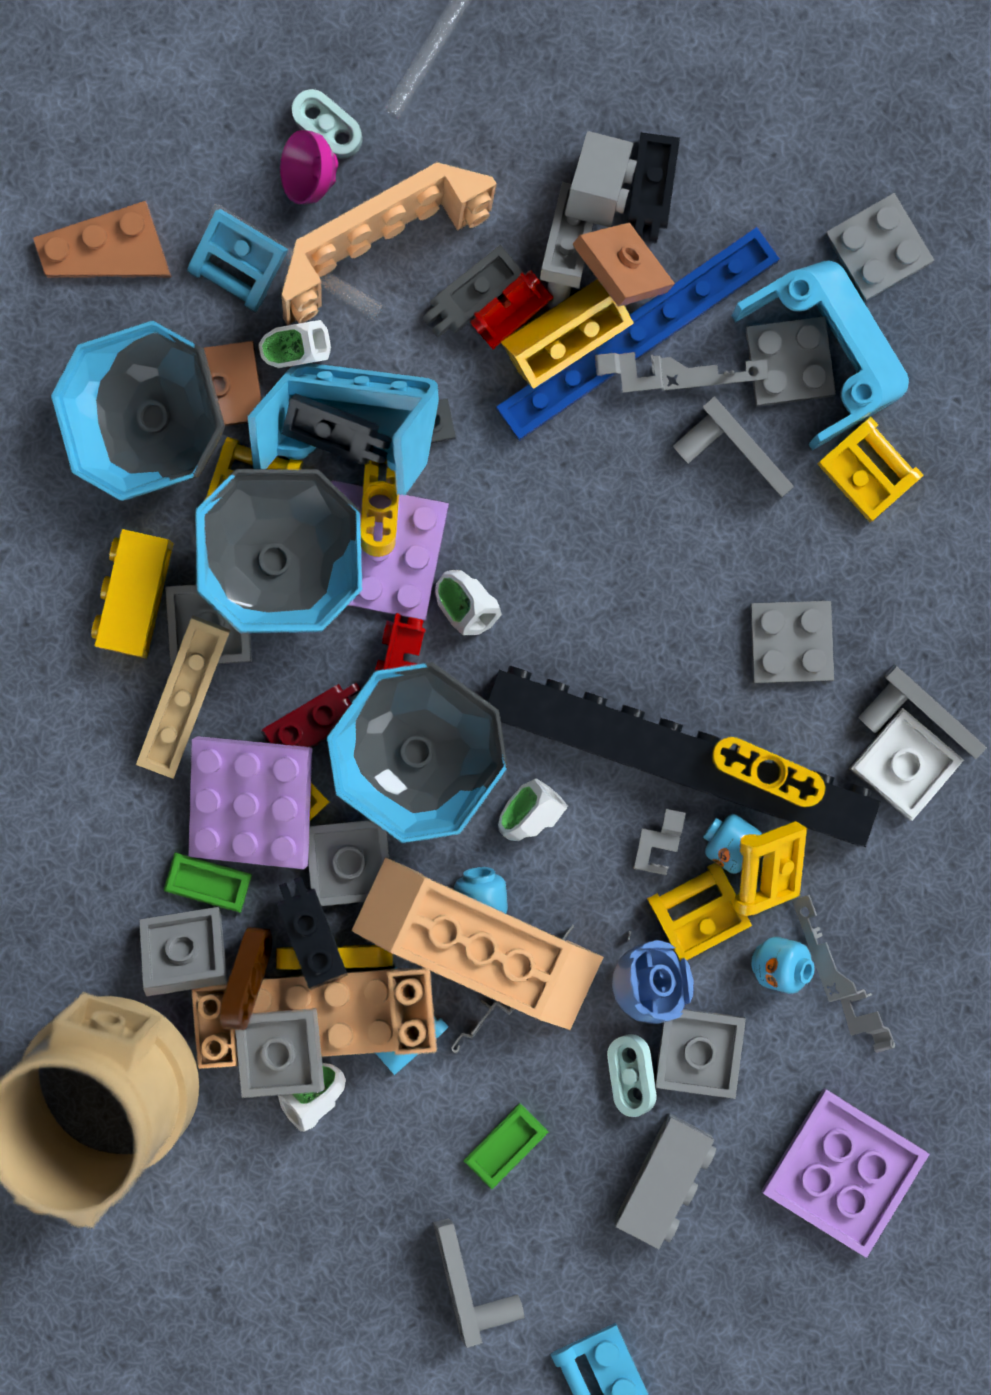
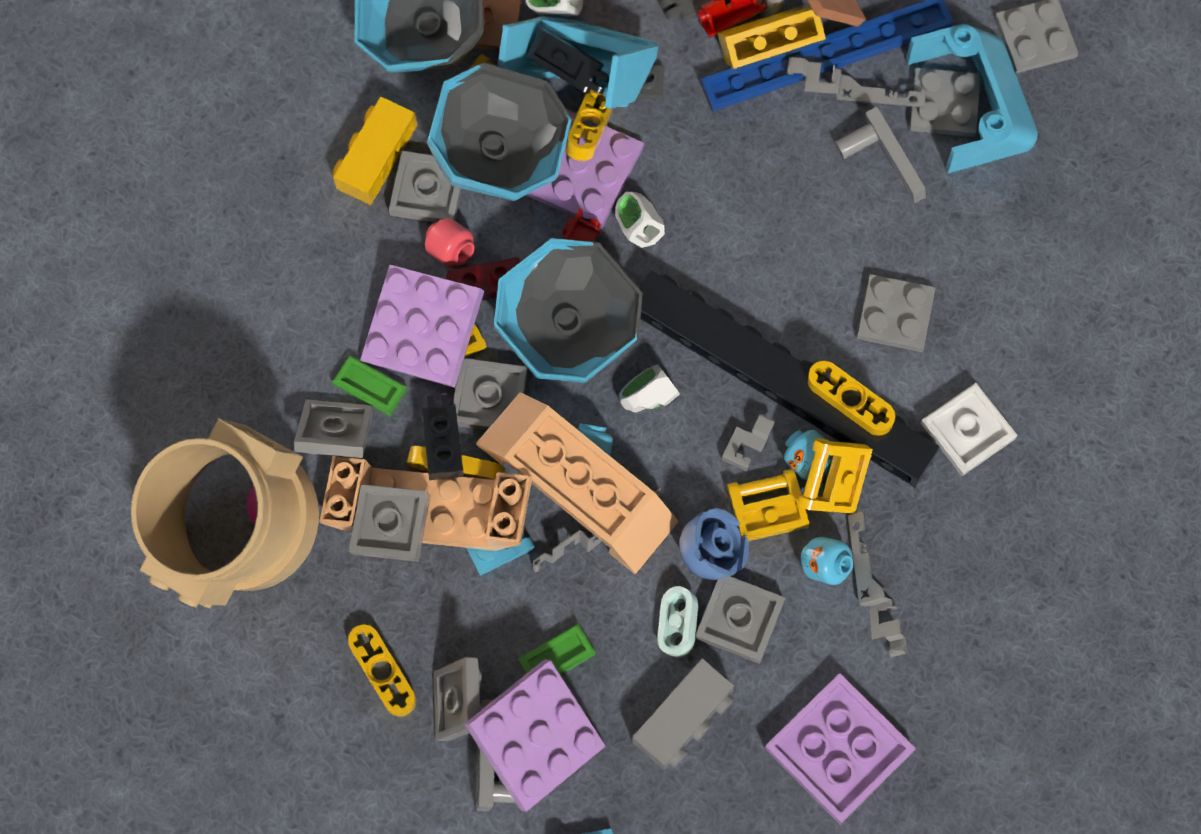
camera: 15 degrees right, 15 degrees down
(183, 696) = (391, 233): tan plate -> none
(246, 978) = (379, 458): reddish brown beam -> none
(253, 688) = (449, 242): none -> coral head
(307, 1108) = (403, 576): white rock -> none
(343, 1226) = (360, 653): none -> yellow beam
(410, 1234) = (456, 697): none -> light grey plate
(508, 1254) = (535, 735): none -> lavender plate
(861, 478) = (982, 200): yellow plate -> none
(904, 688) = (981, 367): light grey piece -> none

